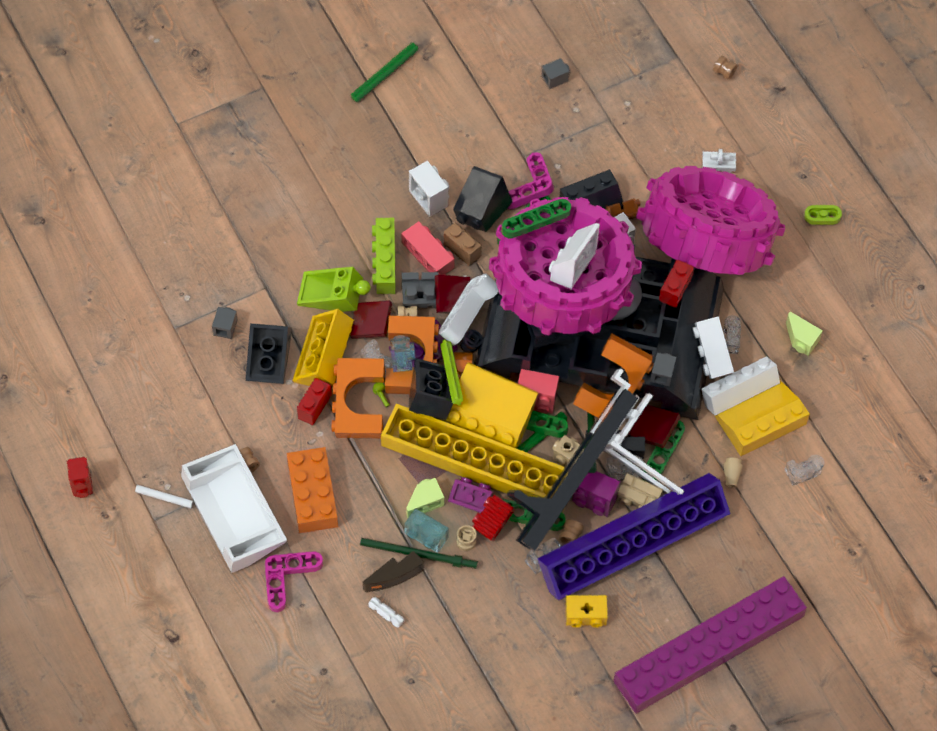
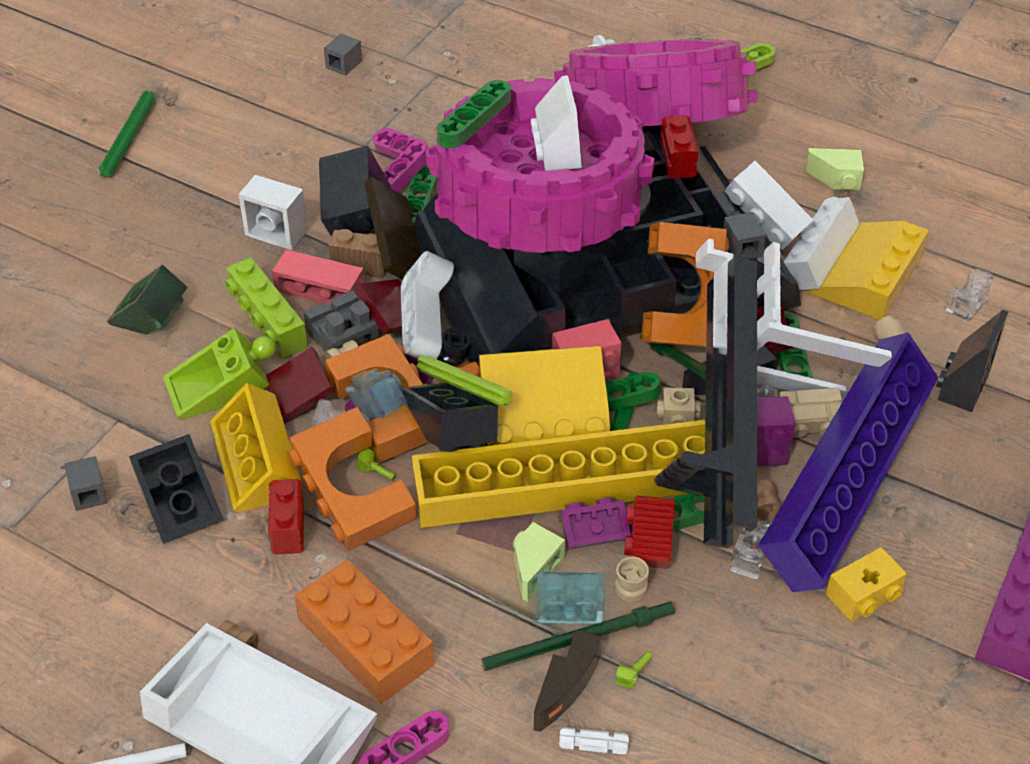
camera: 30 degrees left, 15 degrees down
(323, 216) = (149, 302): none -> clear green slope
(427, 589) = (628, 676): none -> lime hand
(484, 241) = (392, 228): none -> dark brown tile
(753, 519) = (971, 365): none -> black slope

